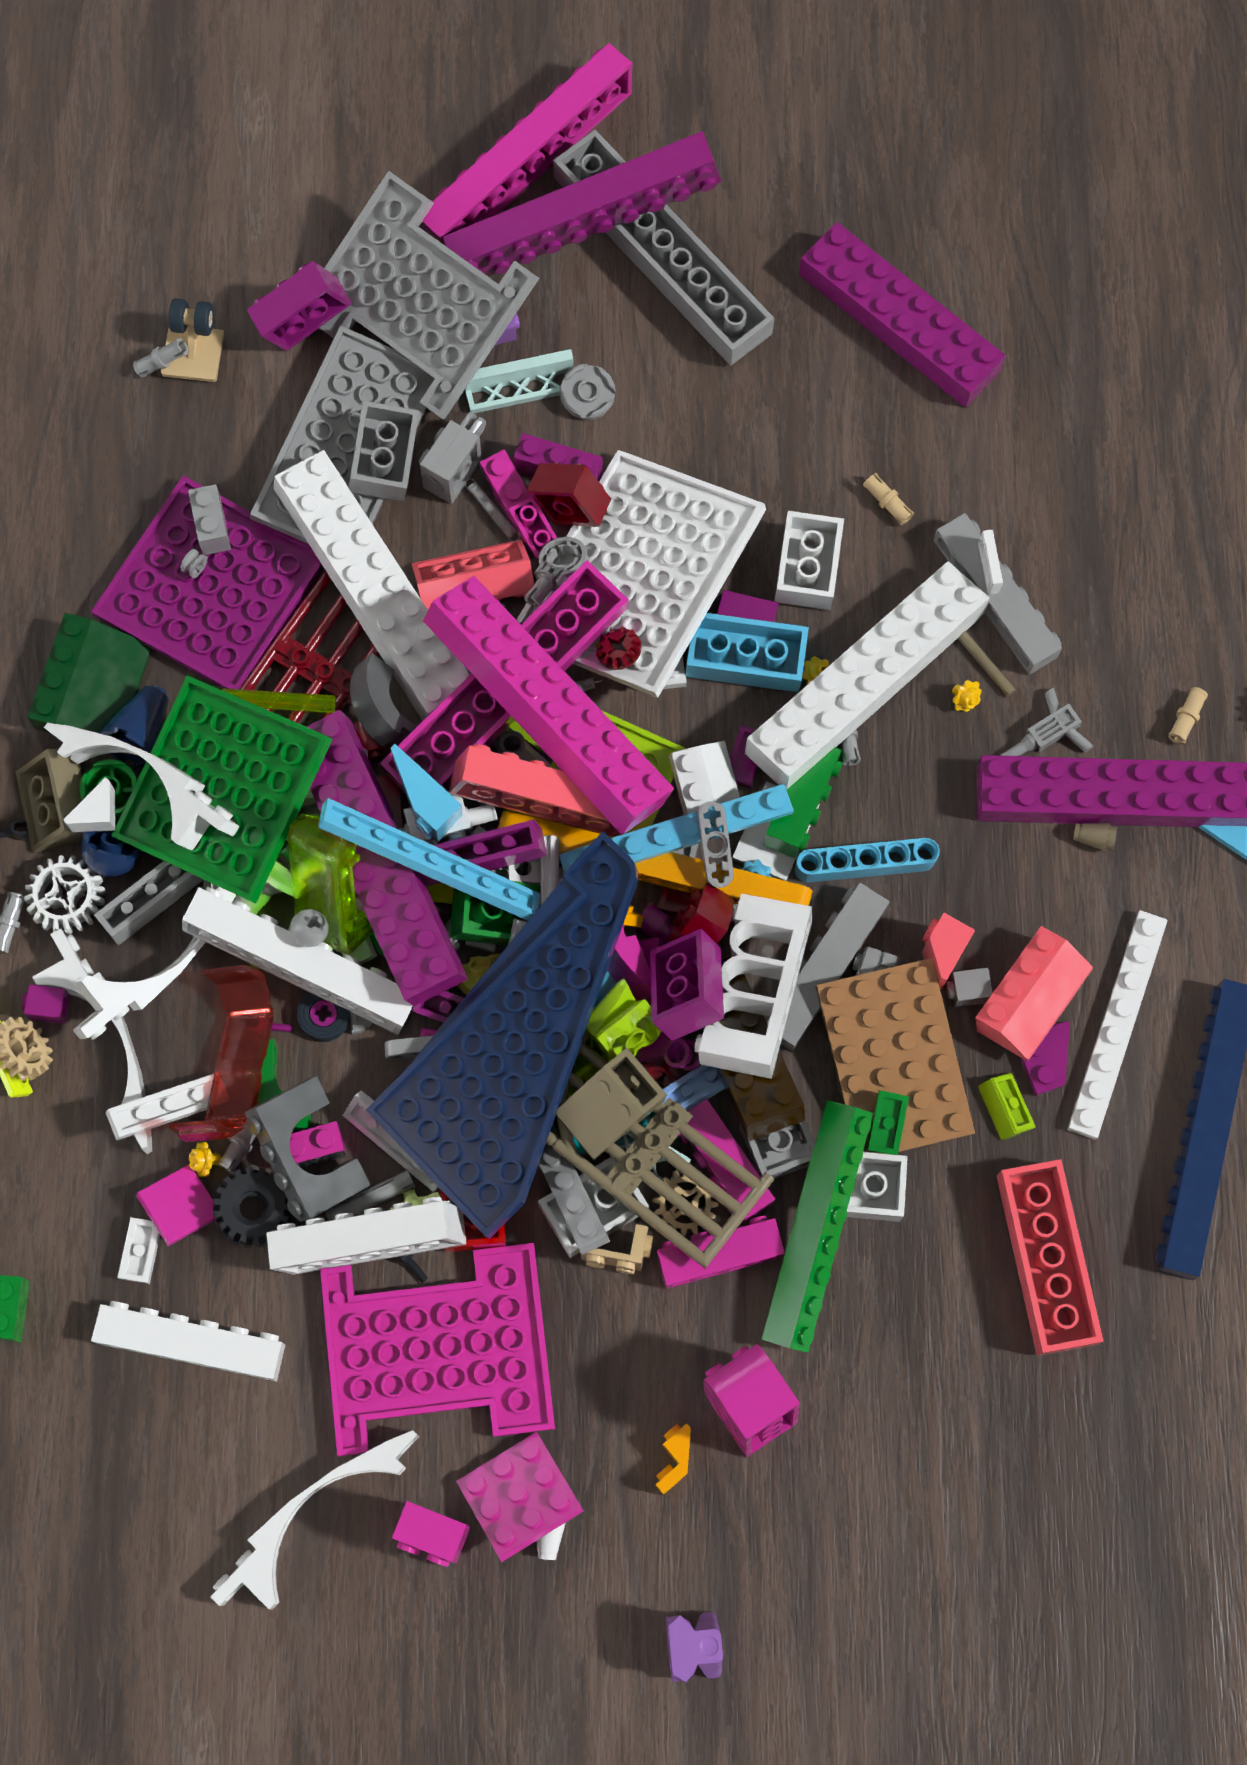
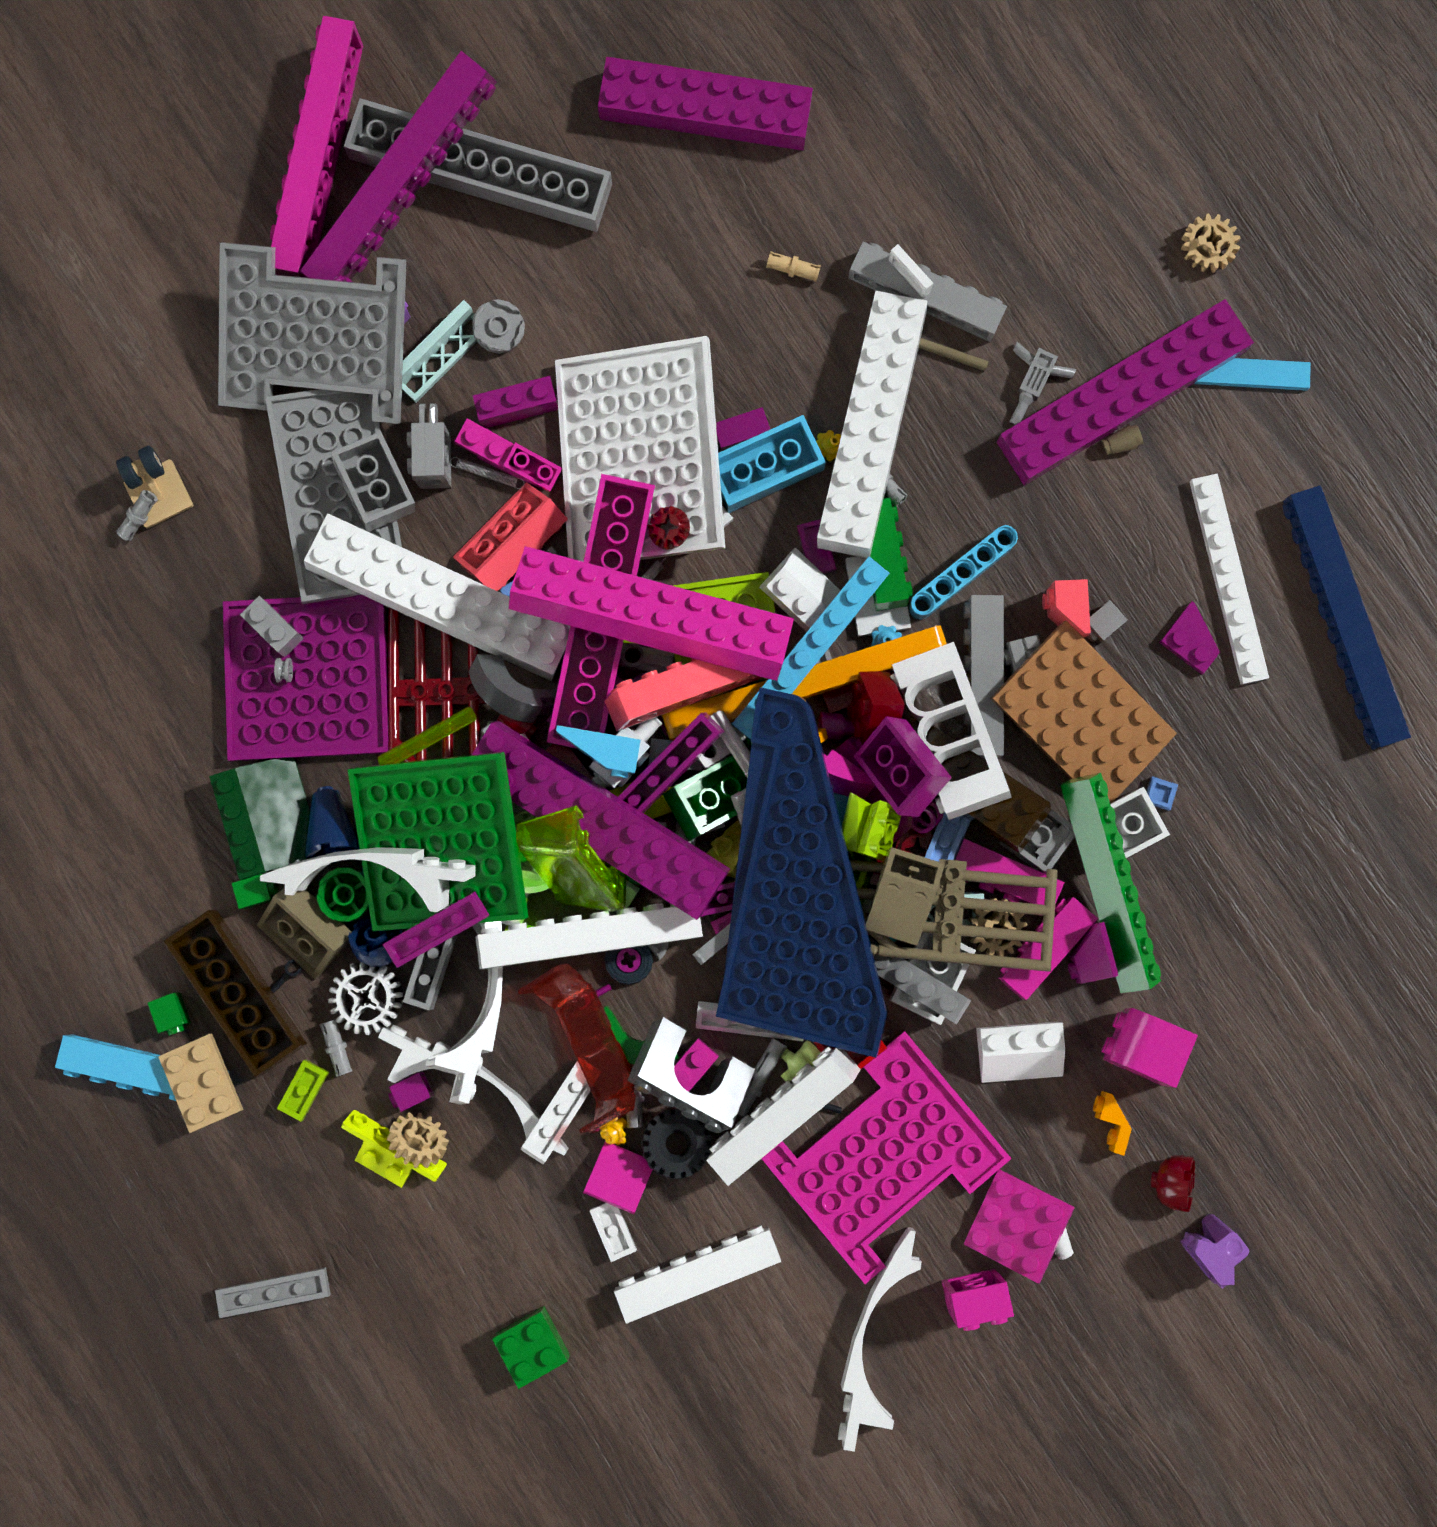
camera: 30 degrees left, 10 degrees up
(31, 738) = (253, 892): none -> green brick
(95, 811) = (349, 921): white slope -> none
(166, 863) = (436, 929): none -> magenta plate
(299, 306) = (221, 402): magenta brick -> none
(309, 928) = (587, 918): light grey piece -> none
(428, 859) = (642, 799): medium azure plate -> none
(550, 575) = (575, 499): light grey pin -> none
(569, 494) = (544, 423): dark red brick -> none
(625, 1263) = (988, 984): tan bracket -> none
(630, 1334) = (1021, 1051): none -> white slope
(697, 1554) = (1175, 1182): none -> dark red cylinder
(724, 865) = (855, 658): light grey beam -> none
(755, 1287) = (1093, 956): none -> magenta slope
(809, 560) = (765, 357): white brick -> none
(887, 1122) = (1110, 763): green plate -> none
(924, 1180) = (1161, 793): none -> medium blue tile
(966, 696) = (955, 390): yellow plant -> none
(1006, 1106) = (1186, 697): lime slope -> none
(1033, 994) = (1156, 597): coral slope -> none
(1049, 1257) = (1292, 794): coral brick -> none
(1188, 715) = (1133, 299): tan pin -> none

